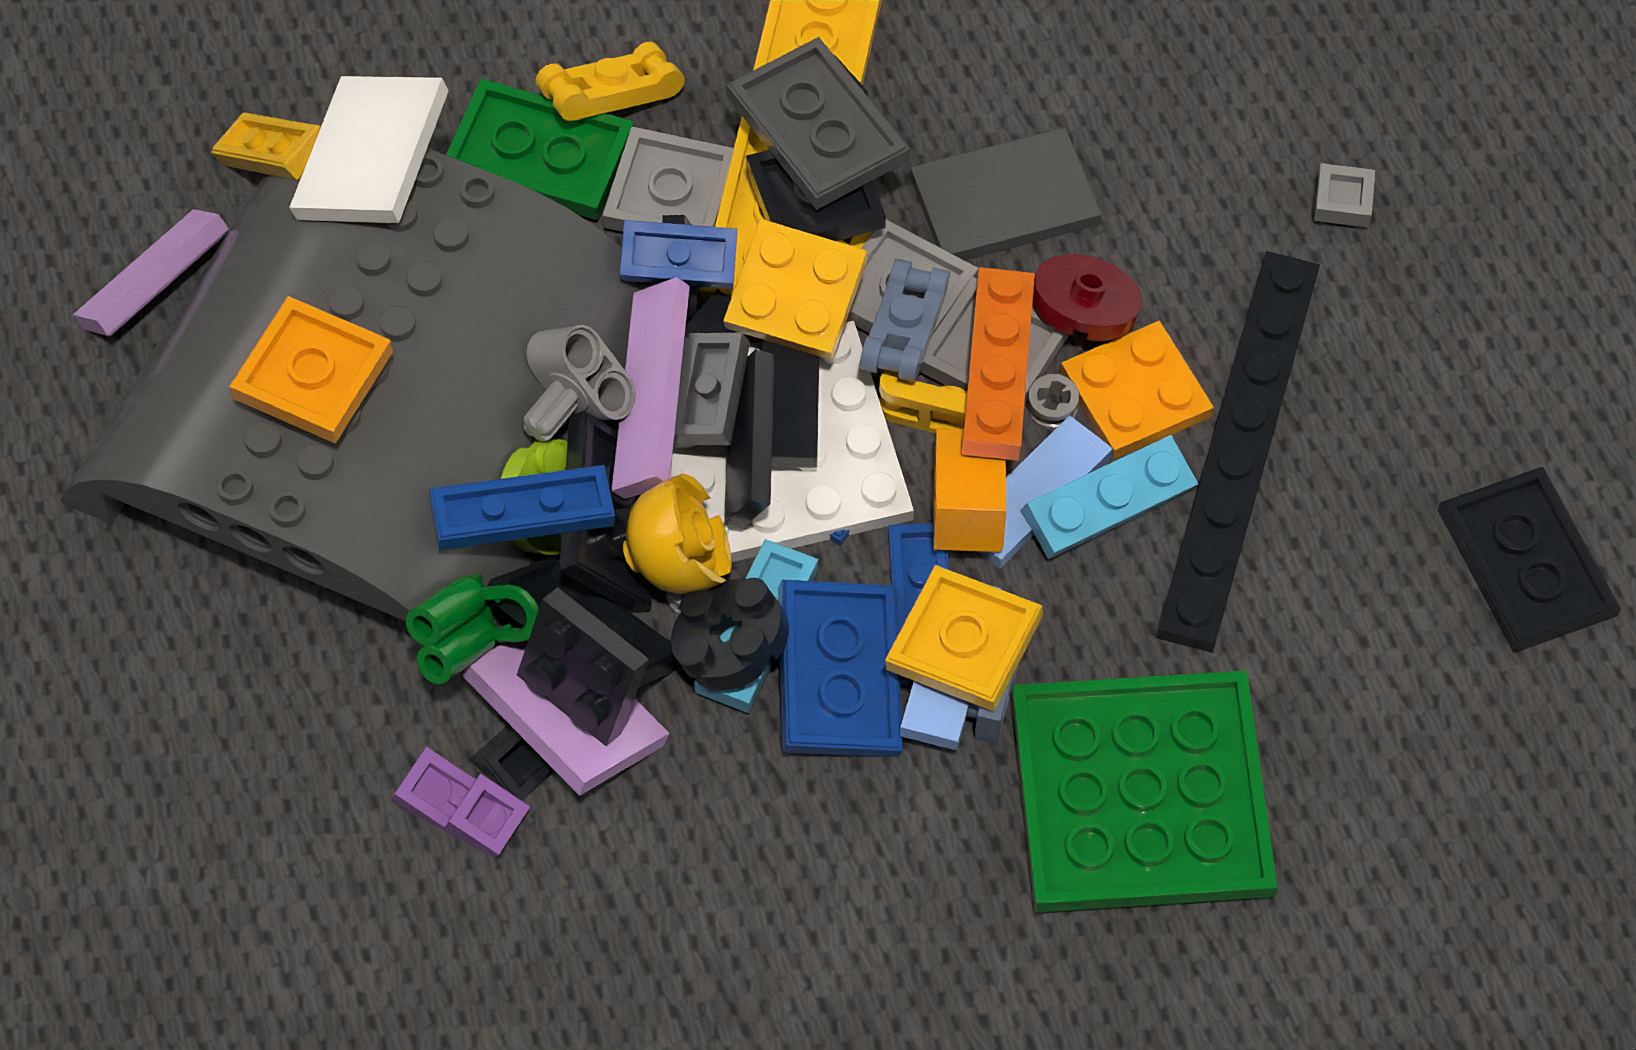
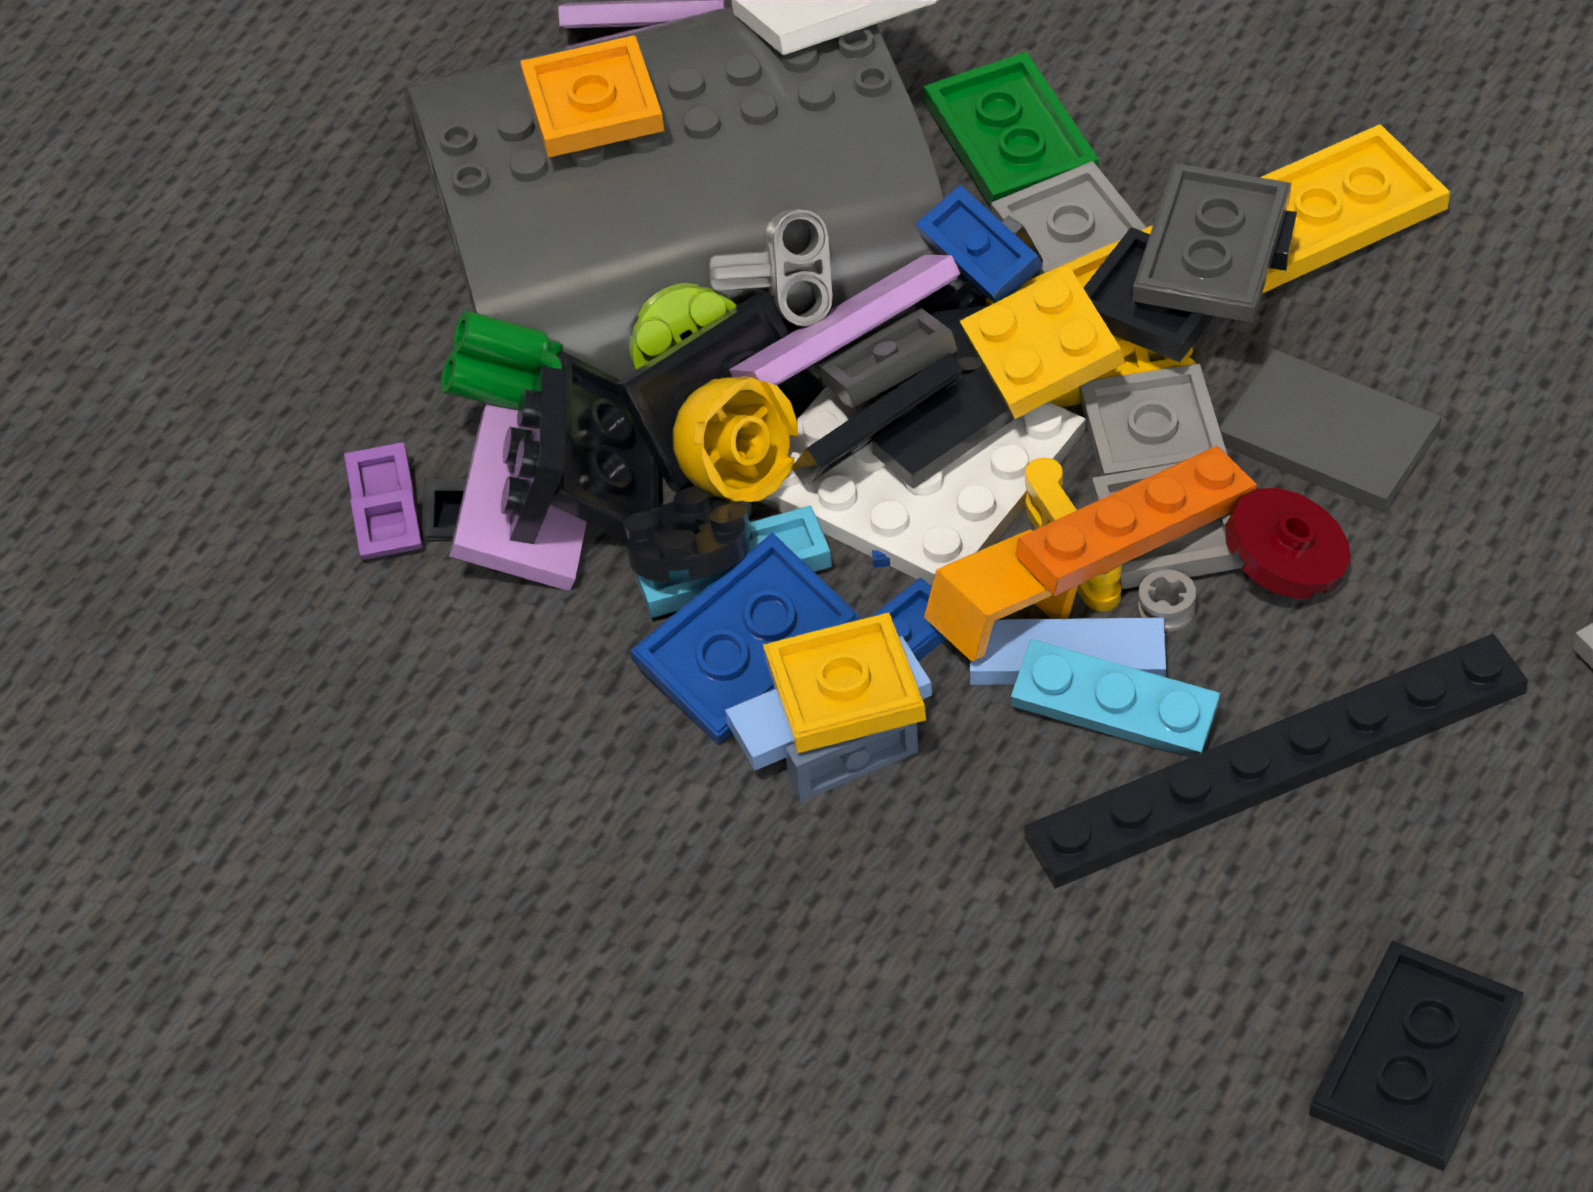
camera: 55 degrees right, 10 degrees down
(521, 507) = (632, 313): blue tile -> none
(610, 83) = (1115, 121): yellow plate -> none
(904, 321) = (1105, 435): sand blue plate -> none
(1137, 389) = (1249, 647): light orange plate -> none
(1142, 791) = (854, 928): green plate -> none

